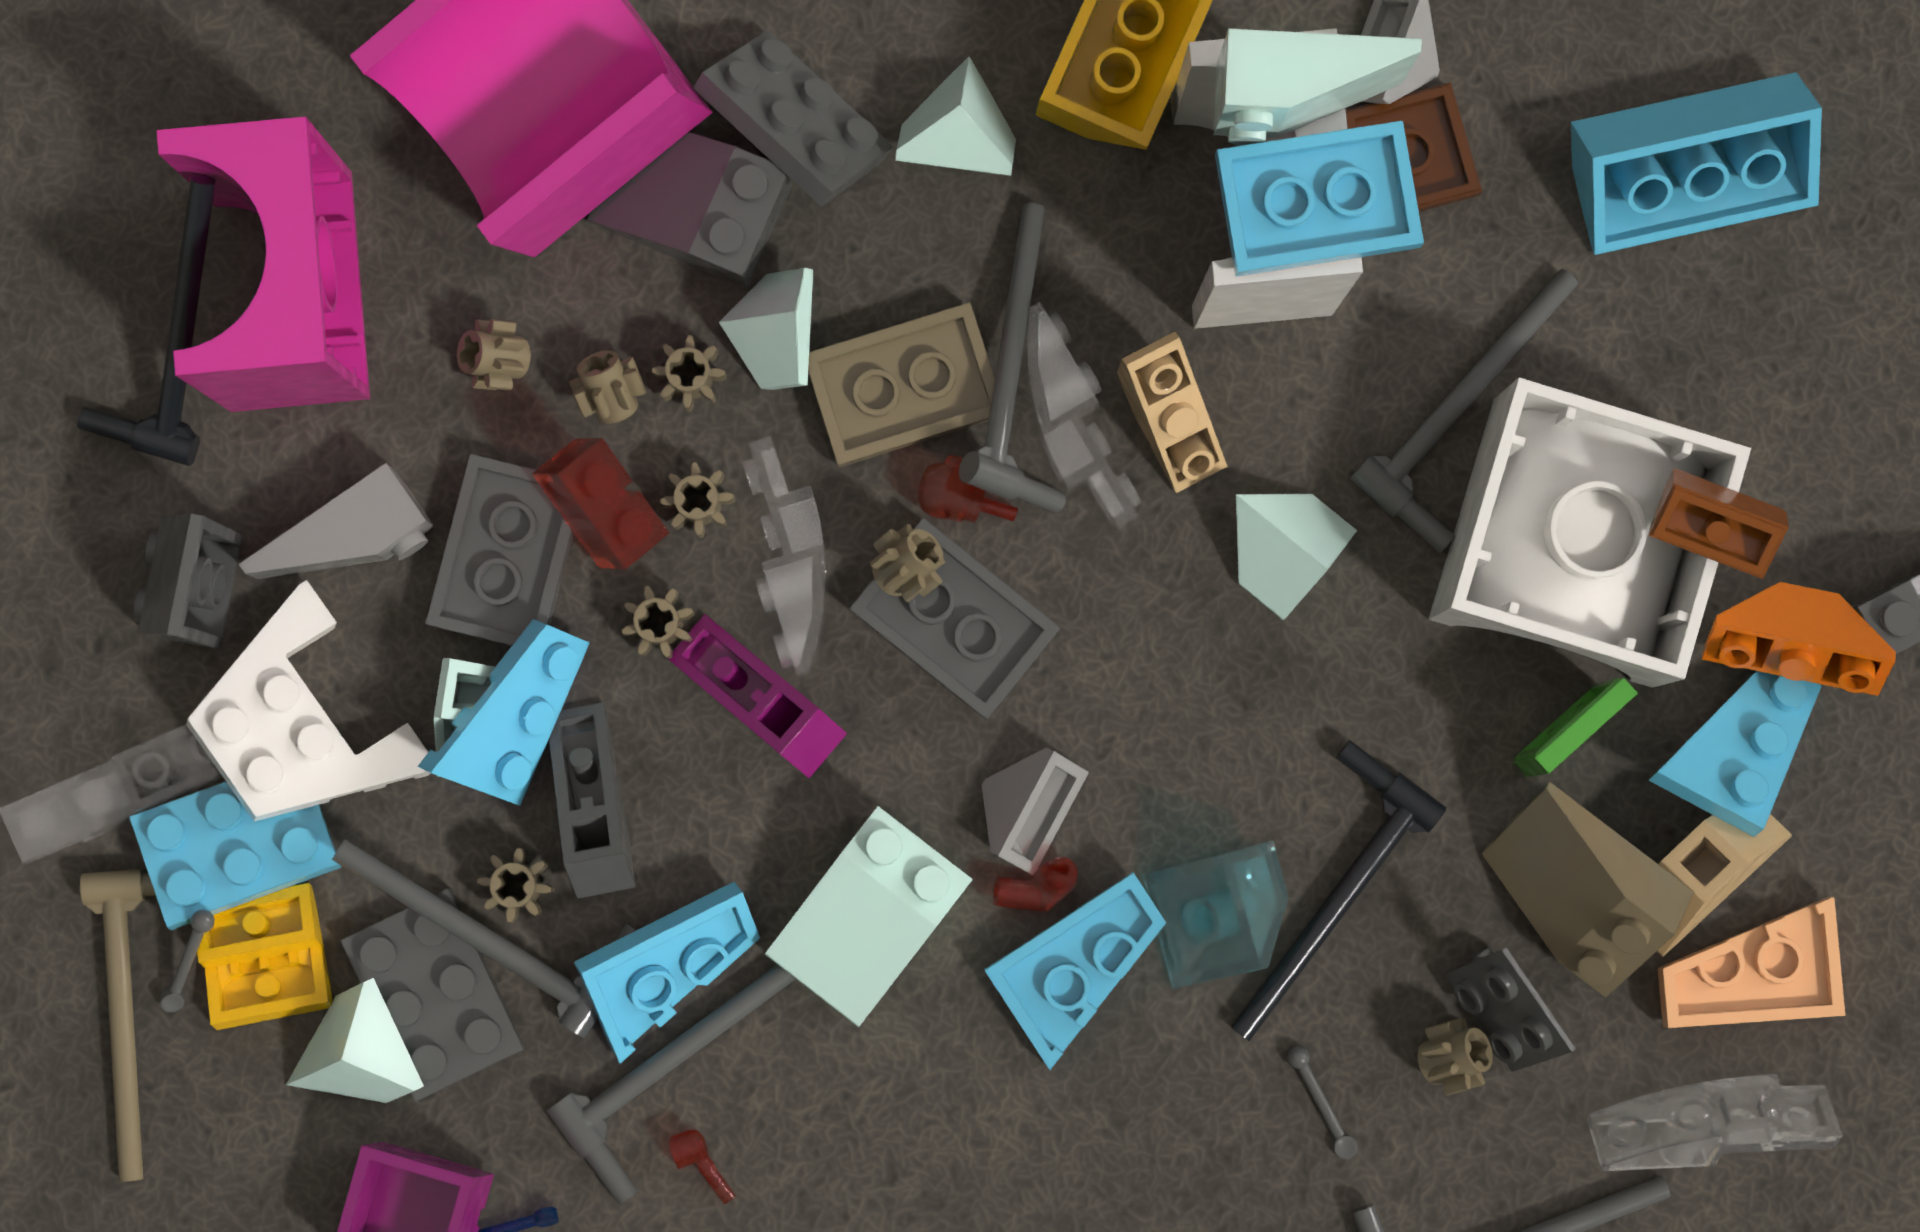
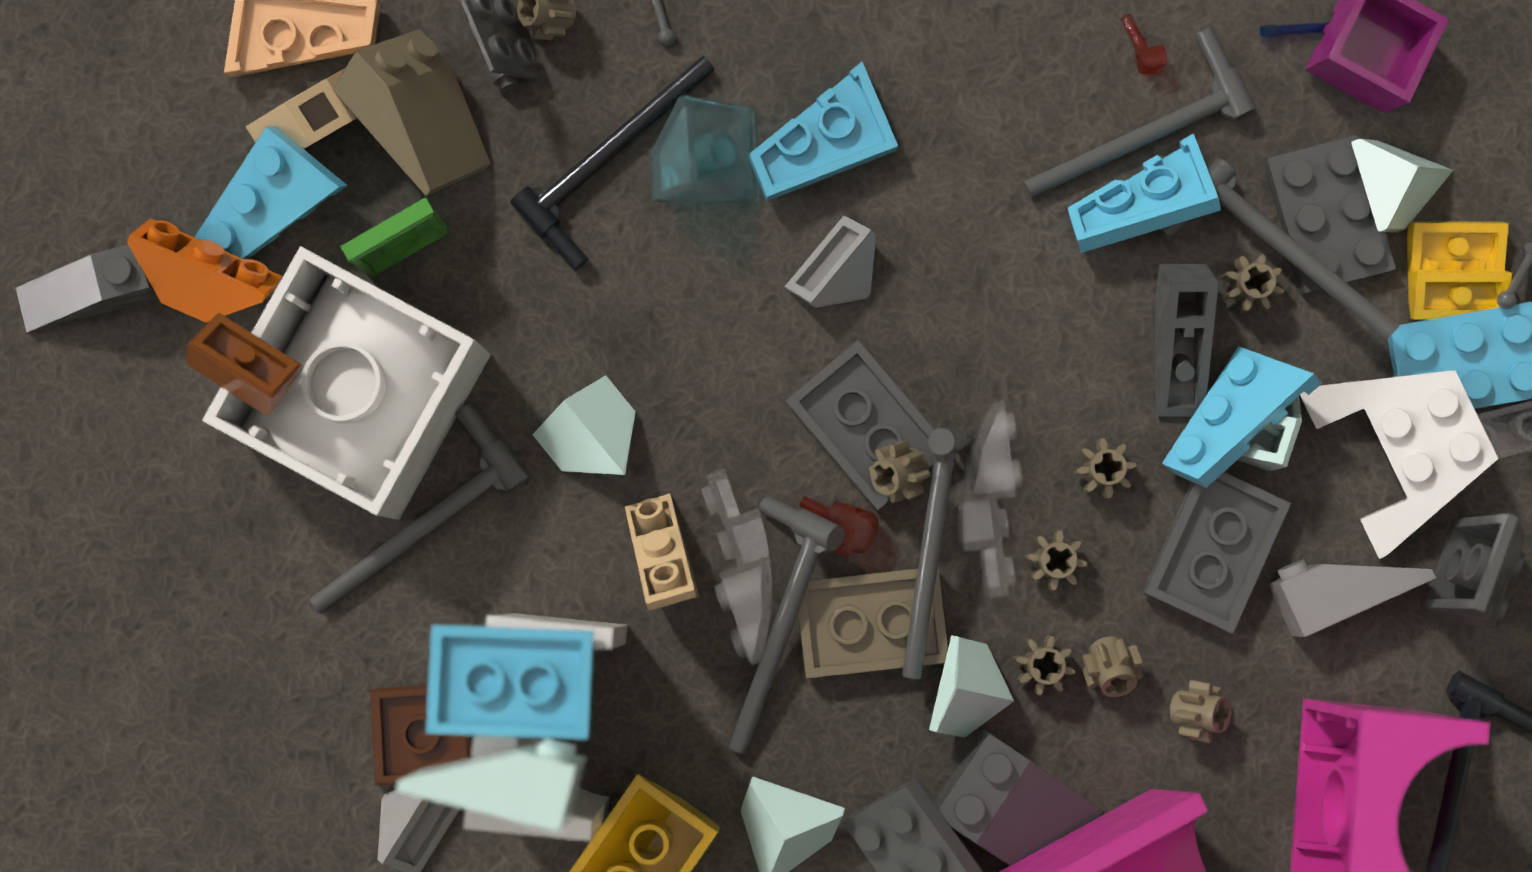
camera: 165 degrees left, 0 degrees up
(590, 495) = (1137, 569): clear red piece -> none
(757, 696) = (1035, 393): magenta slope -> none
(861, 598) = (945, 444): none -> dark grey bar
(868, 916) = (980, 204): light aqua slope -> none
(1040, 890) = (841, 201): clear red arm -> none
(1697, 162) = (188, 678): medium azure slope -> none

